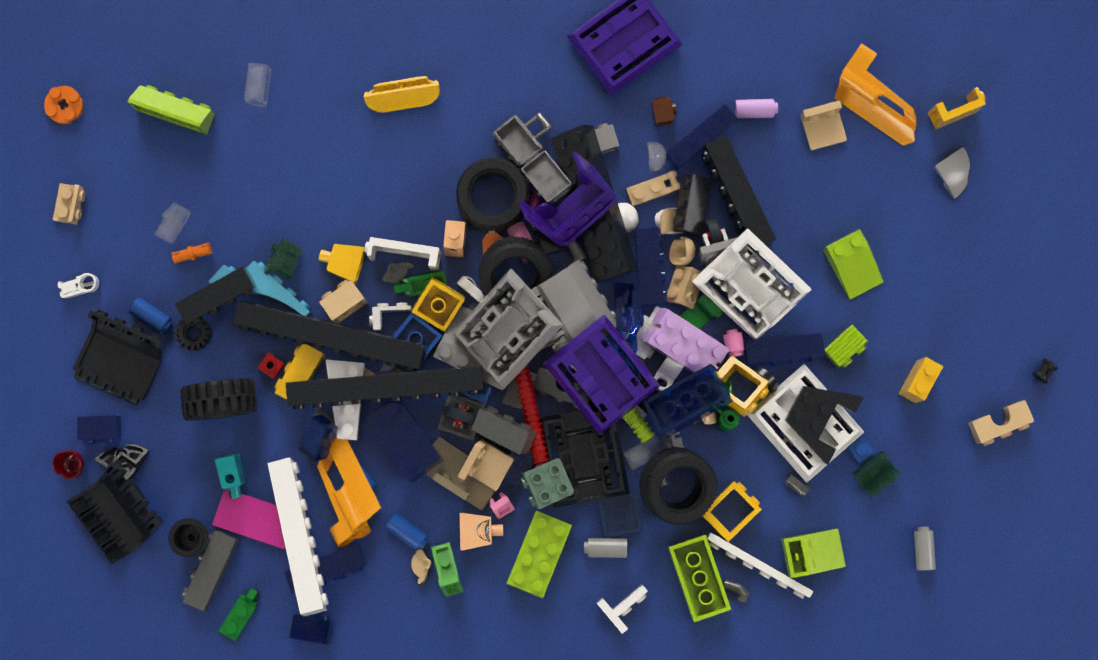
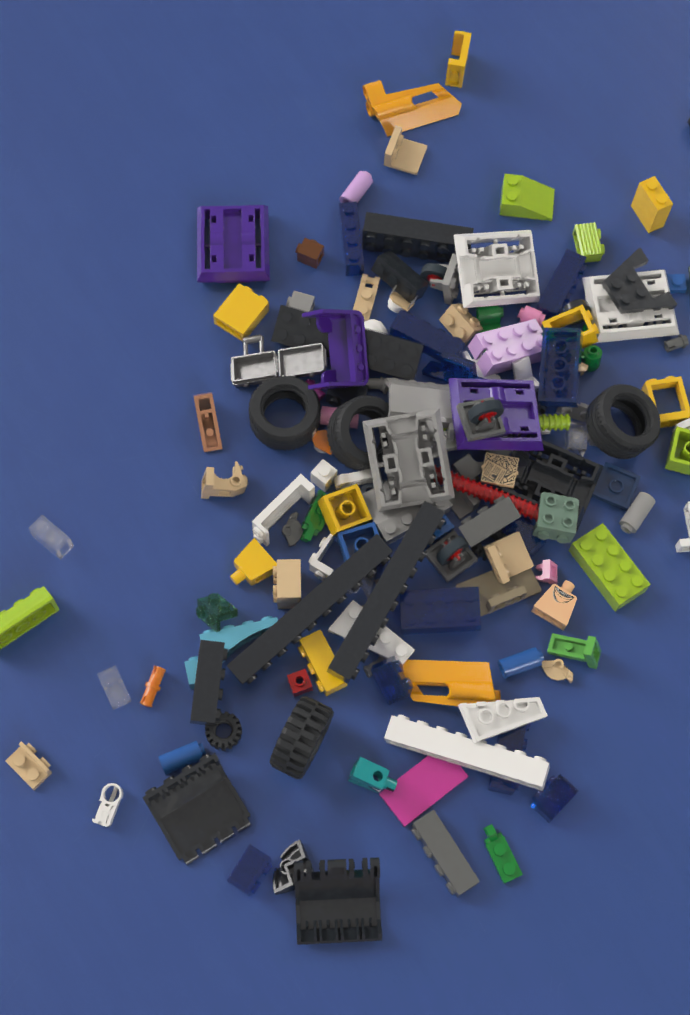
camera: 60 degrees left, 15 degrees down
(68, 464) = (263, 919): dark red hair -> none
(180, 541) = (408, 838): black piece -> none
(338, 542) = (497, 717): none -> white wing
(386, 181) = (216, 486): none -> tan tile
(402, 94) = (149, 430): yellow brick -> none
(444, 135) = (207, 422): none -> nougat slope
(455, 238) = (296, 462): light nougat torso -> none
(460, 265) = (323, 475): none -> white brick
(558, 409) = (499, 470): none -> tan piece
(564, 93) = (241, 312): none -> yellow brick
(578, 366) = (481, 418): none -> dark grey plate
(657, 156) = (342, 278): clear hair -> none
(682, 251) = (431, 307): tan hair -> none
(954, 172) = (503, 93): light grey brick -> none

